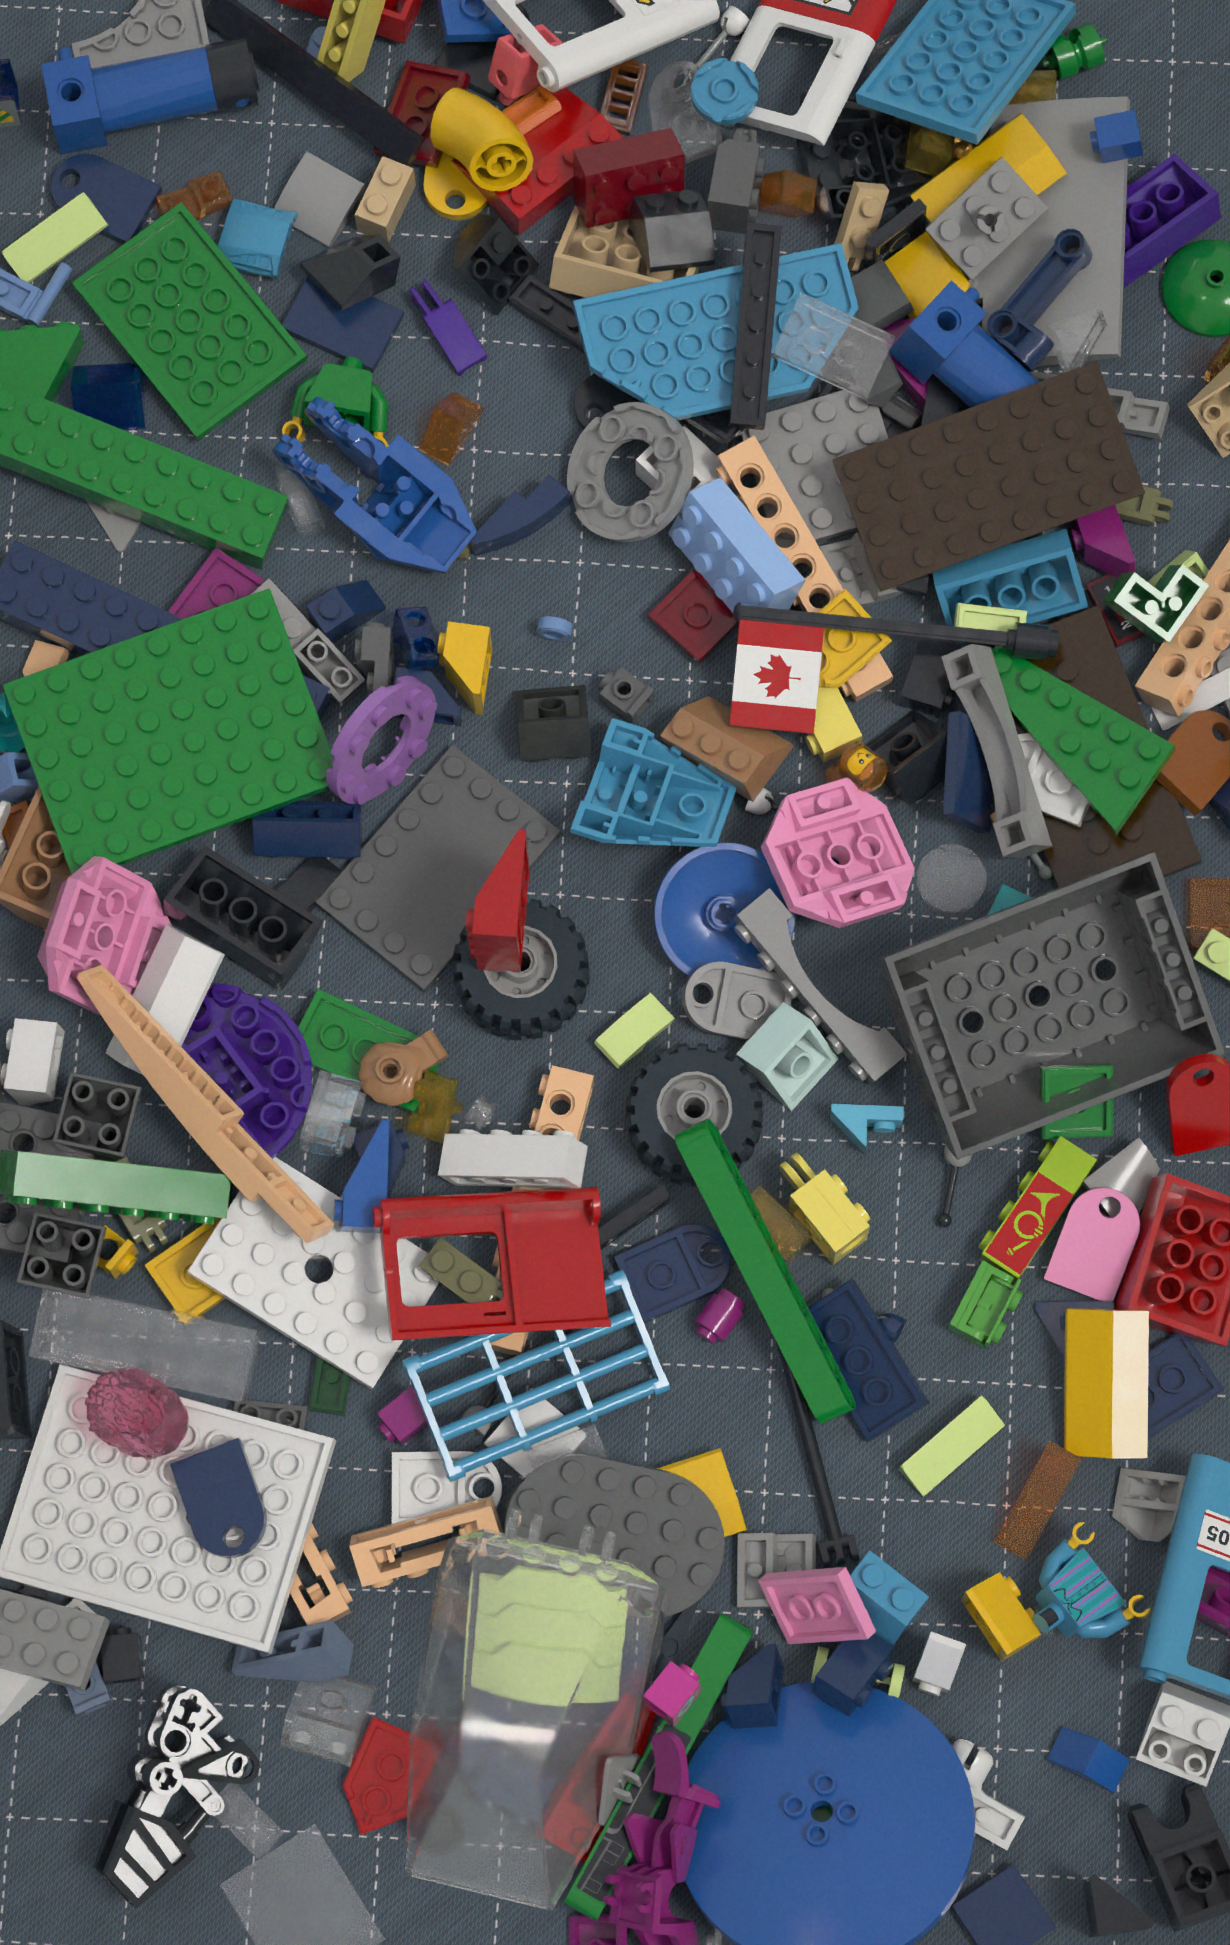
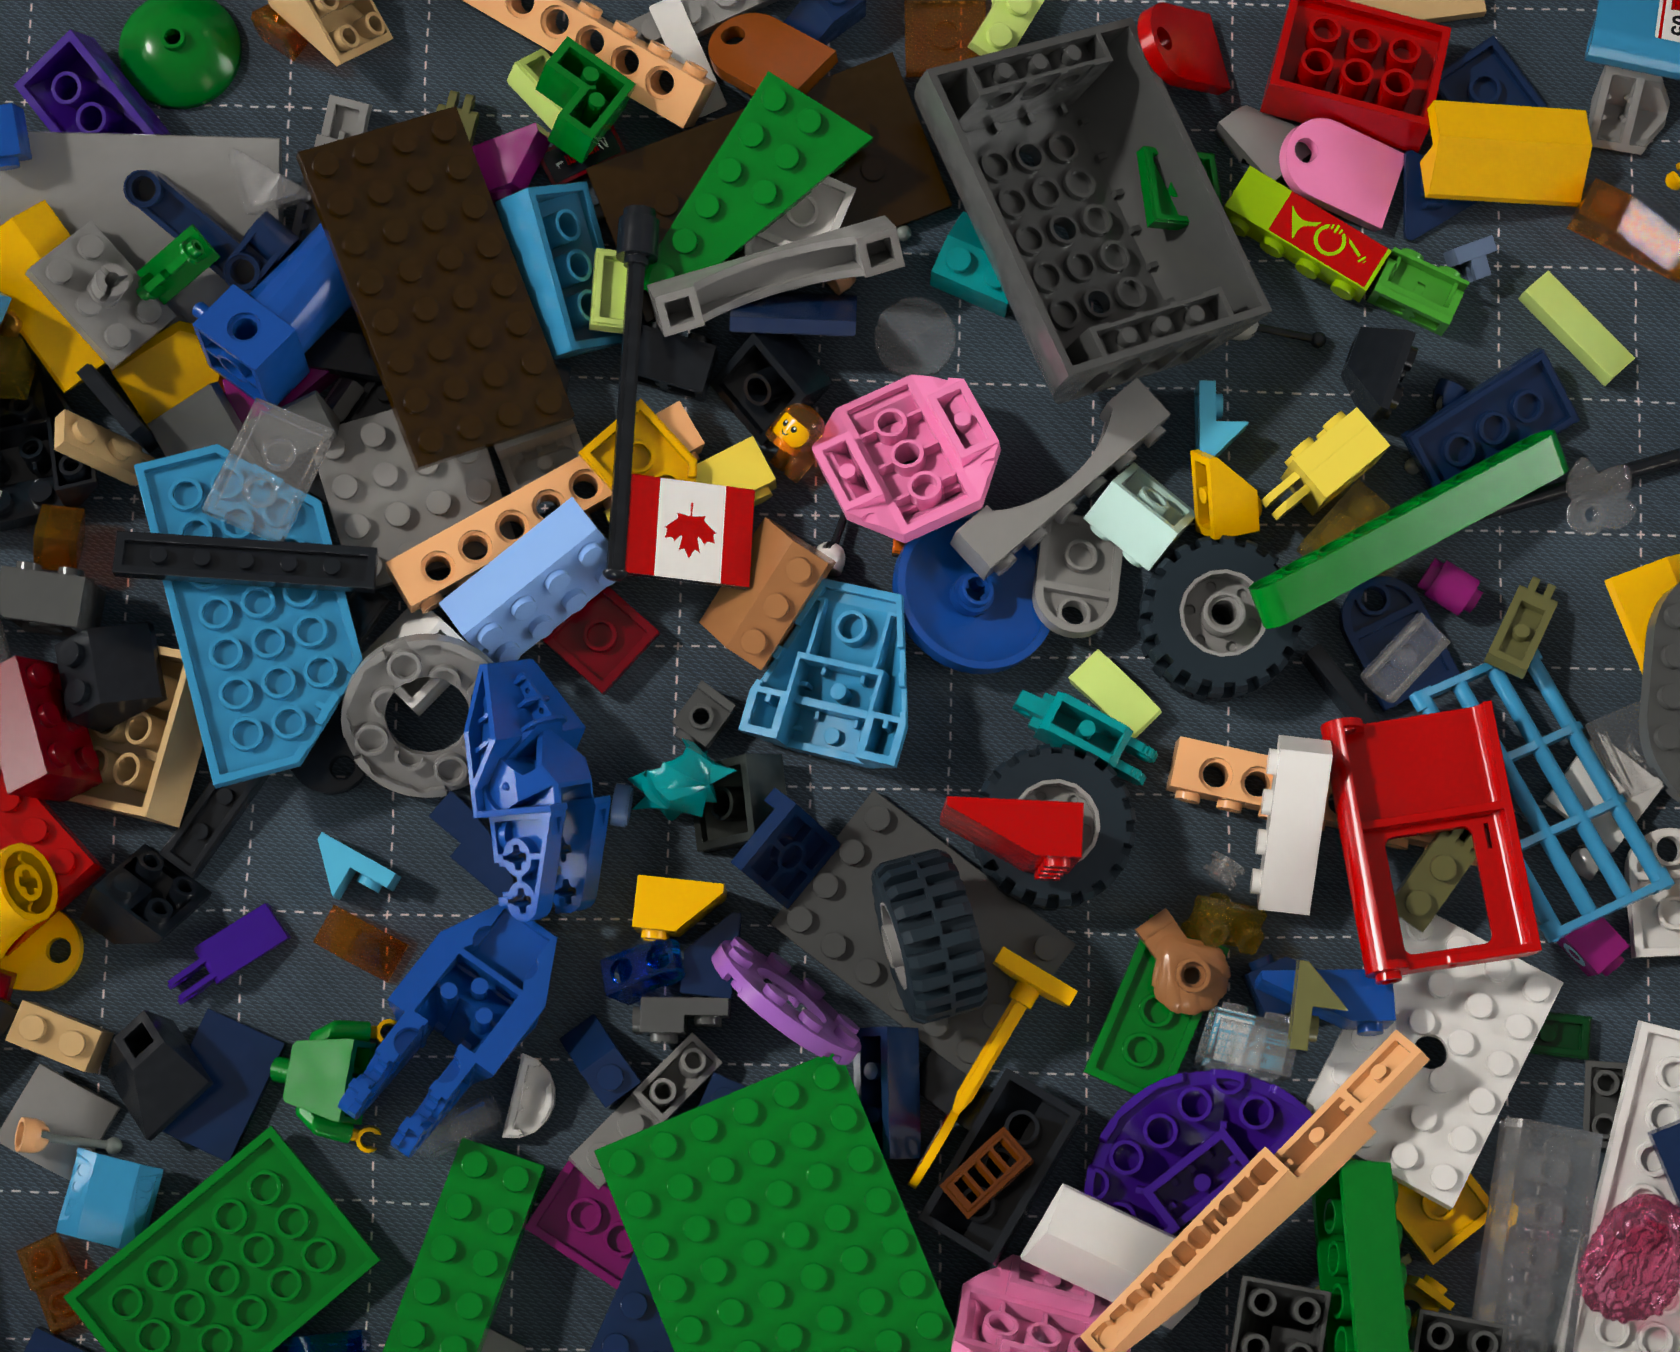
camera: 95 degrees left, 5 degrees up
(253, 918) = (975, 1161): none -> reddish brown slope
(306, 179) = (34, 1135): none -> hinge
(319, 556) = (531, 1099): none -> white plate
(366, 1149) = (1308, 992): none -> olive slope
(391, 944) = (1030, 984): none -> yellow piece
(428, 850) = (929, 936): none -> black wheel
(509, 751) = (785, 850): none -> dark blue piece
(516, 413) = (342, 864): none -> medium azure slope
(569, 672) = (681, 783): none -> teal hair
(578, 546) = (534, 789): none -> blue connector
(599, 998) = (1072, 722): none -> teal hinge
(655, 1268) = (1404, 658): none -> clear brick
(680, 1374) = (1522, 629): none -> olive hinge
(798, 1123) = (1222, 499): none -> yellow slope
(798, 1454) = (1603, 493): none -> clear plate
(908, 1259) = (1375, 367): none -> black slope
(1006, 272) = (175, 266): none -> green hinge
(1015, 1354) = (1472, 258): none -> sand blue tile

